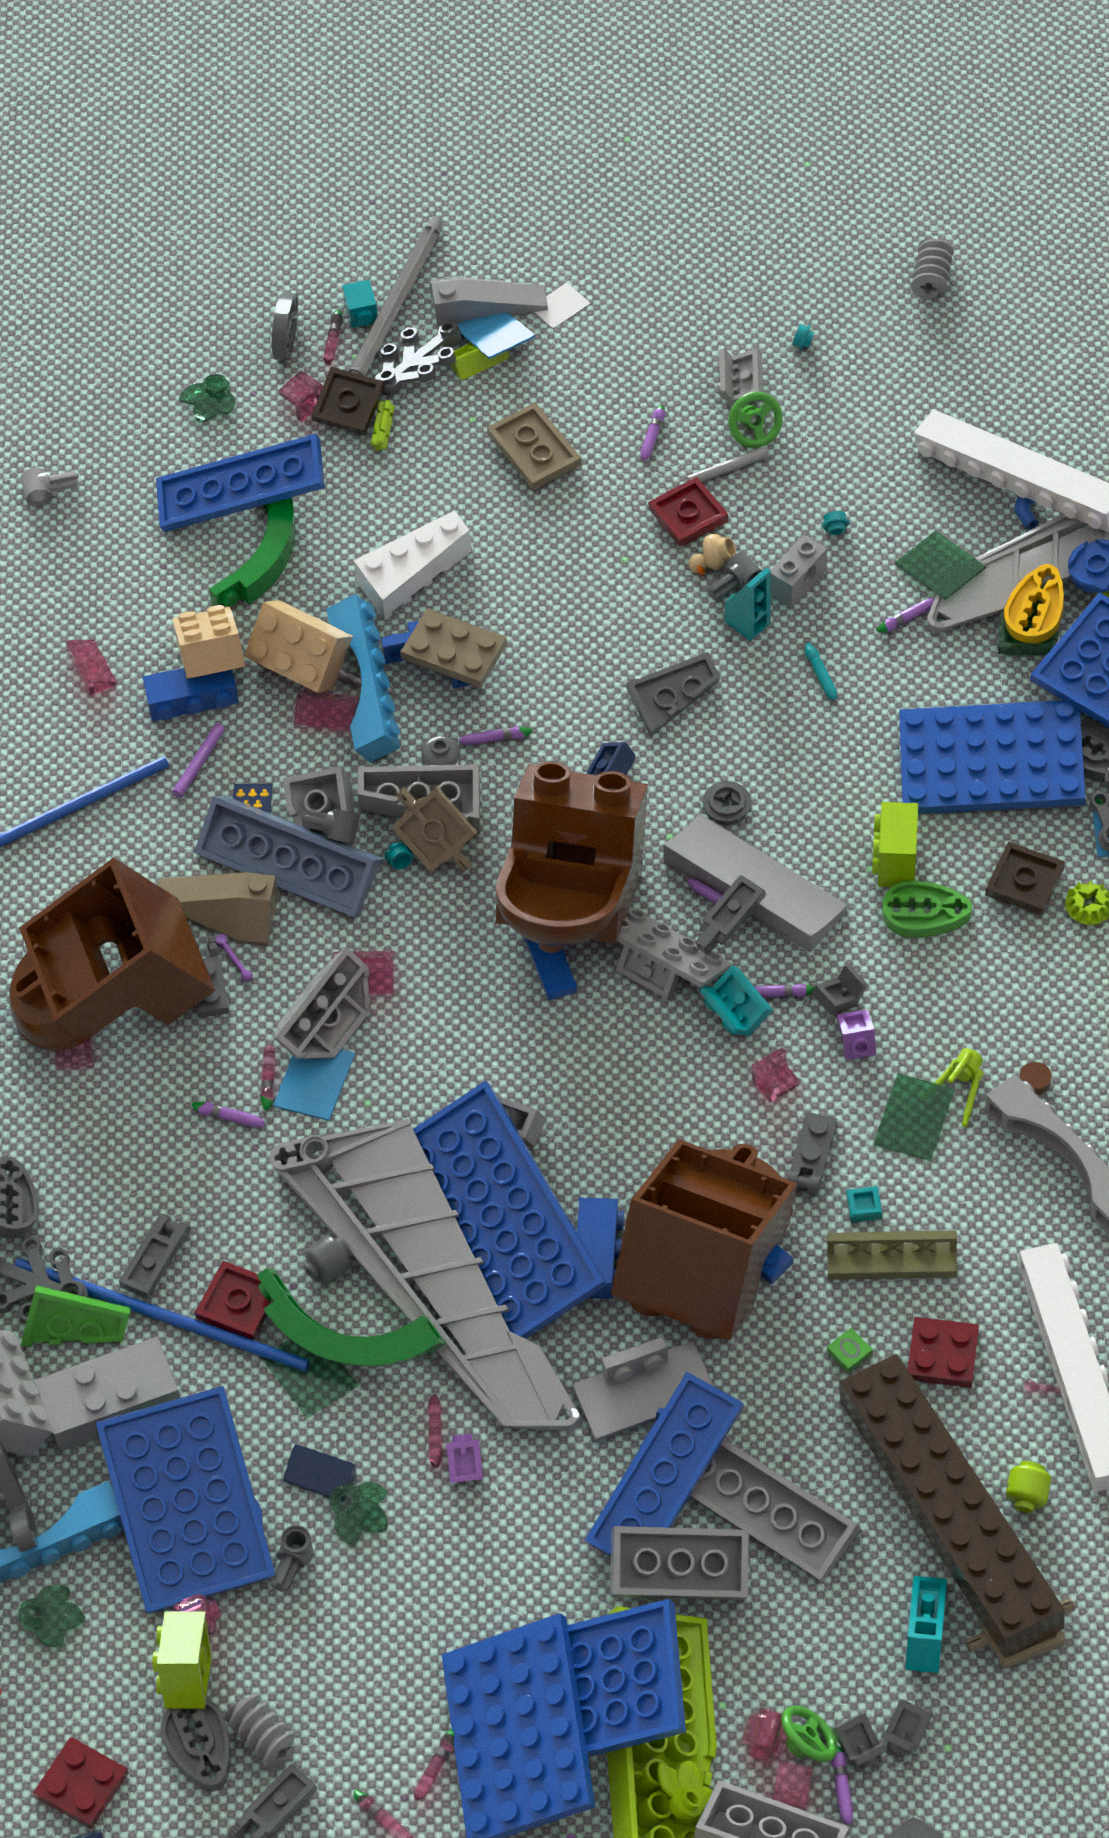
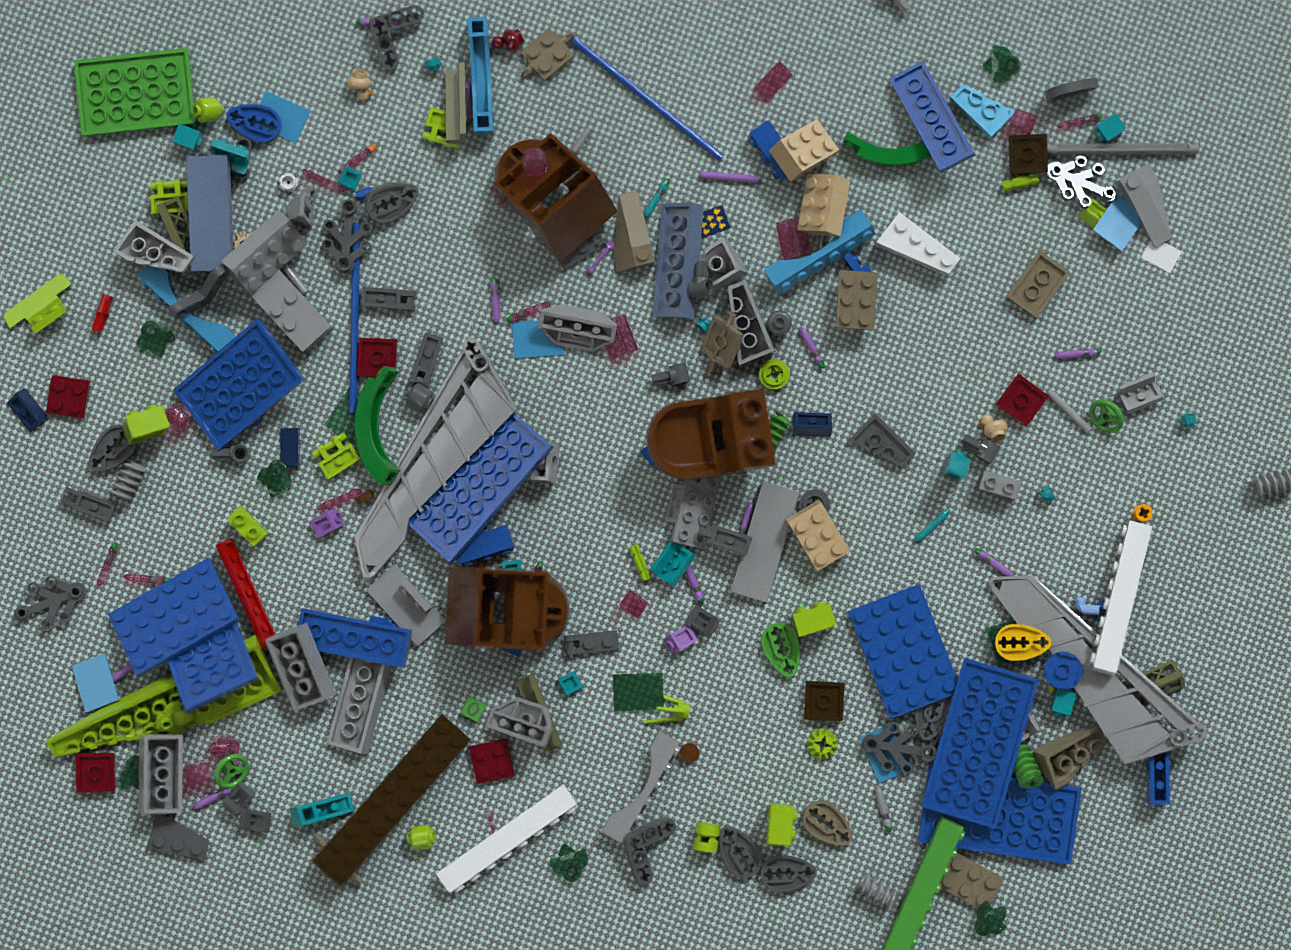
camera: 60 degrees right, 30 degrees up
(52, 945) = (535, 162): none -> clear pink head
(71, 1317) = (327, 265): bright green wing -> none
(180, 856) = (656, 198): none -> teal piece
(267, 430) = (982, 111): none -> medium azure wing
(272, 1233) = (426, 359): none -> dark grey plate
(374, 1409) = (340, 460): none -> lime plate
(418, 1573) = (247, 526): none -> lime brick
(447, 1390) = (364, 497): none -> reddish brown tile
(454, 913) = (677, 375): none -> dark grey axle
(501, 787) = (782, 378): none -> lime gear
(519, 1613) = (245, 591): none -> red tile
(716, 1050) = (640, 562): none -> lime axle
(774, 803) = (817, 535): none -> tan brick
(900, 1271) = (522, 721): none -> light grey wedge
(909, 417) = (1137, 510): none -> light orange bush
(940, 565) = (1038, 570): clear green window -> none
(1019, 523) = (1086, 609): none -> light blue arm

